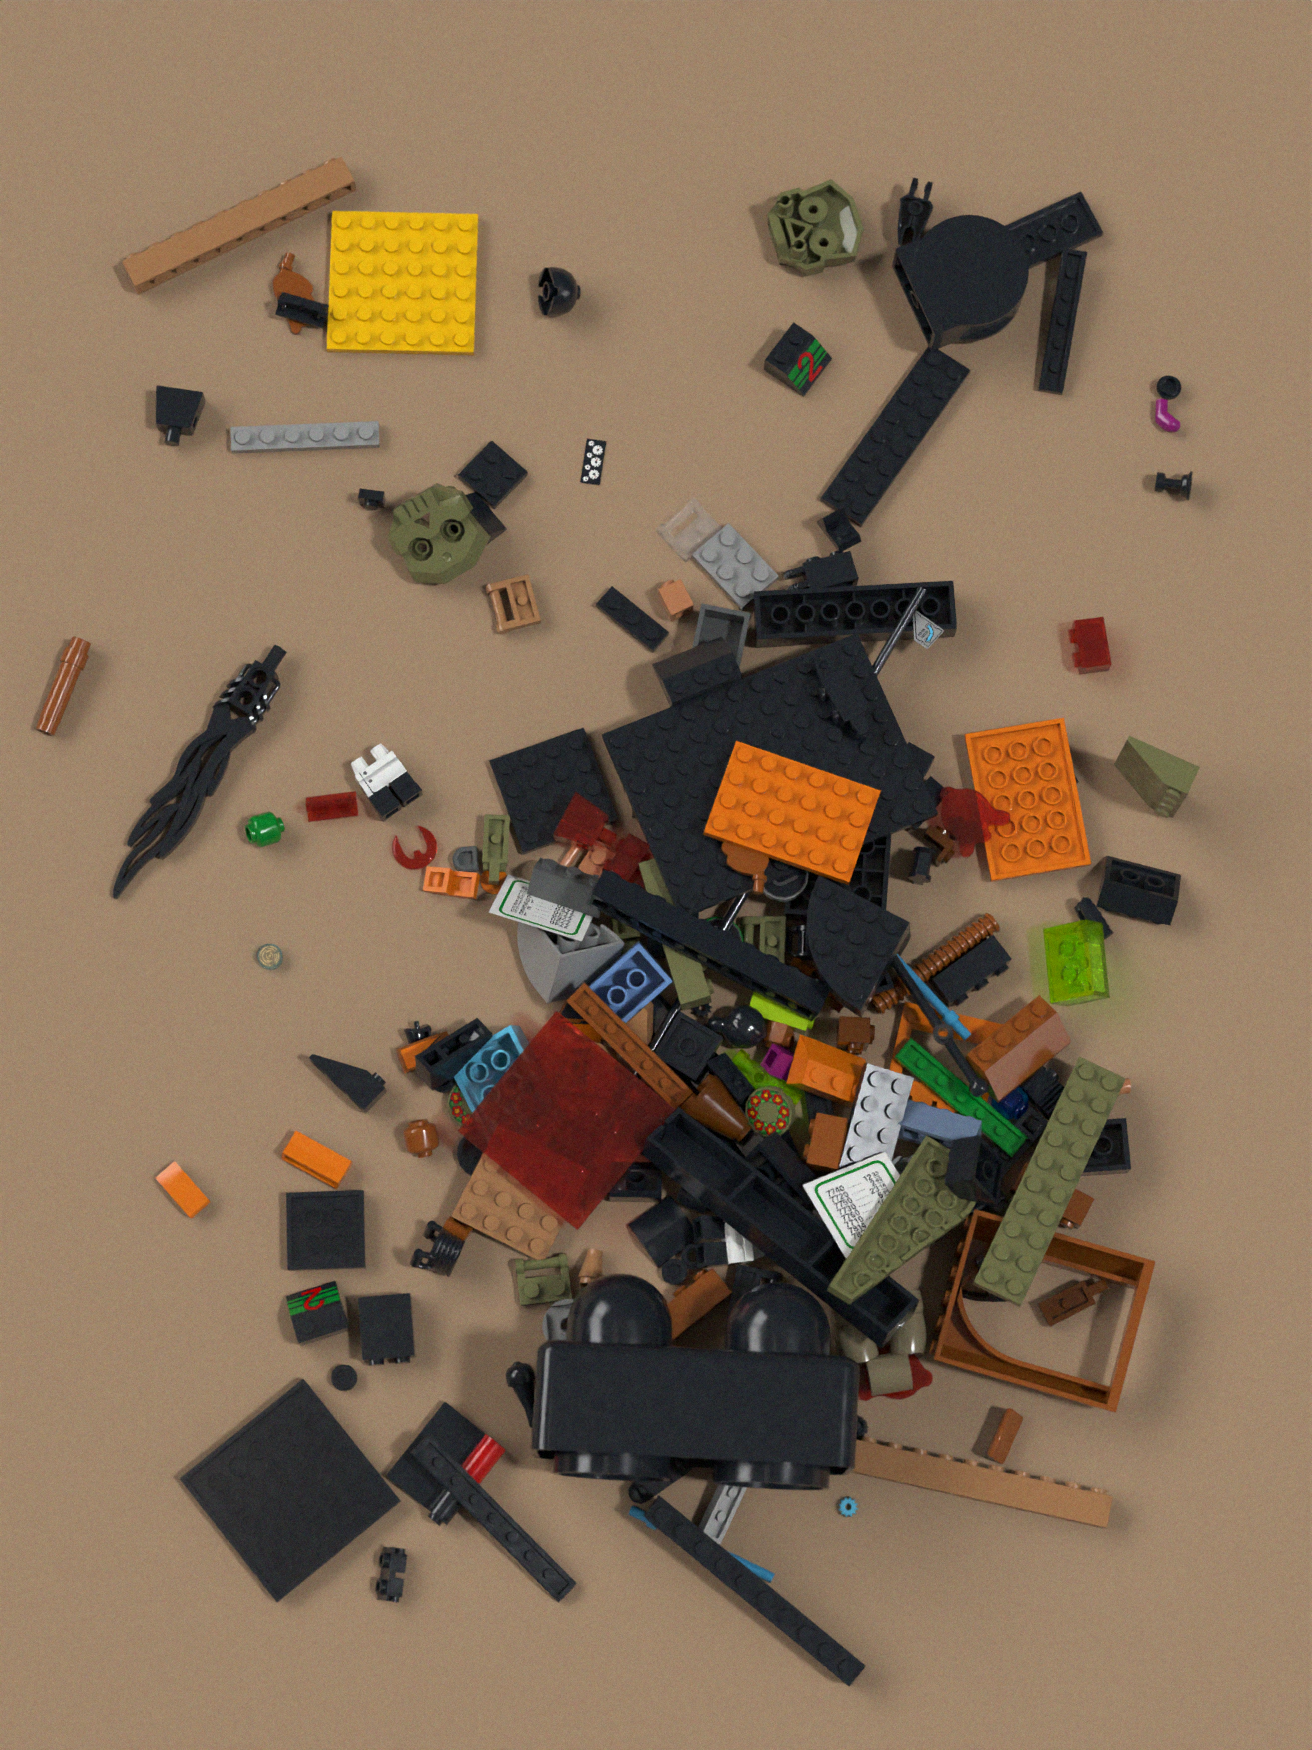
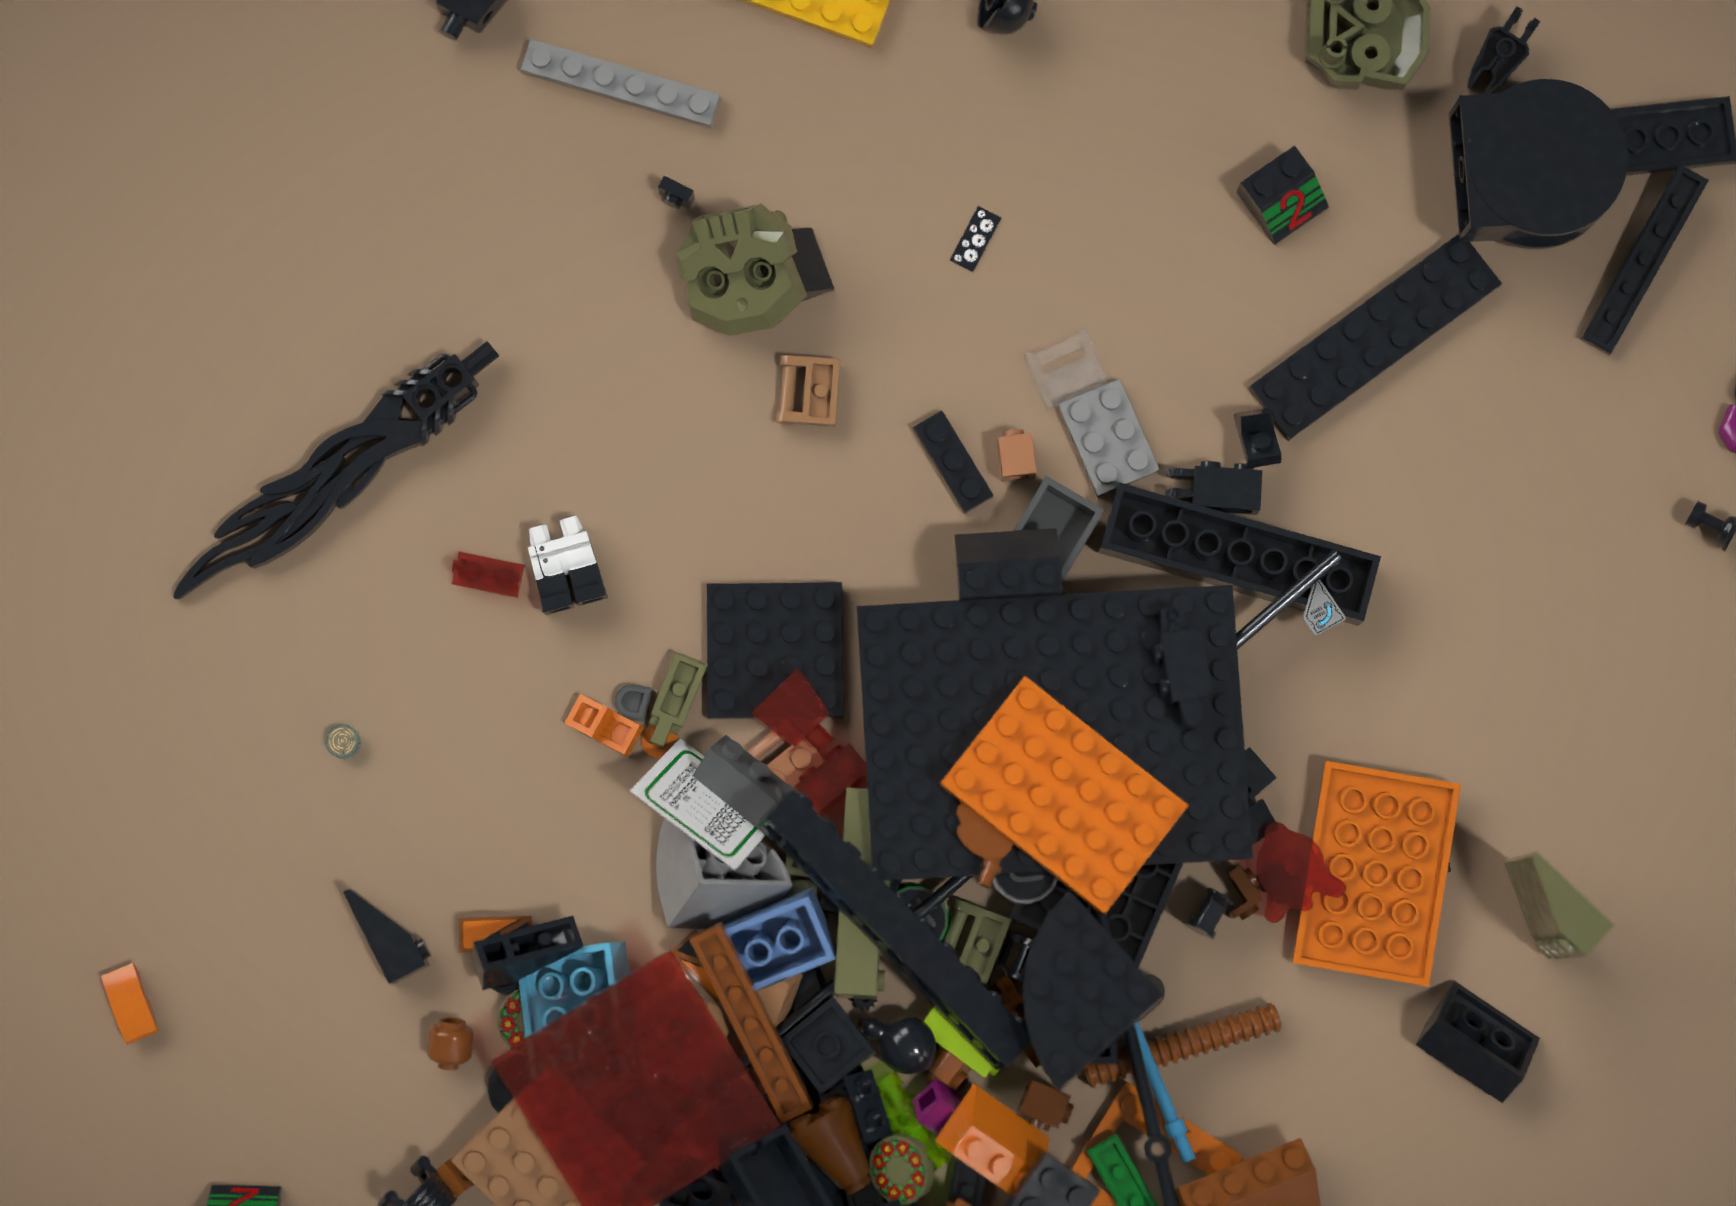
camera: 20 degrees right, 5 degrees up
(72, 663) = (226, 276): dark orange piece -> none
(264, 829) = (391, 576): green head -> none
(316, 1160) = (310, 1023): orange piece -> none
(325, 1230) = (289, 1119): black plate -> none
(417, 1033) = (494, 905): black piece -> none
(420, 860) = (574, 682): clear red head -> none
(493, 474) = (841, 212): black plate -> none
(971, 972) = (1225, 1073): black brick -> none
(1076, 963) = (1363, 1112): clear neon green brick -> none
(1087, 910) = (1404, 1060): black hinge -> none
(1090, 645) = (1528, 699): clear red brick -> none

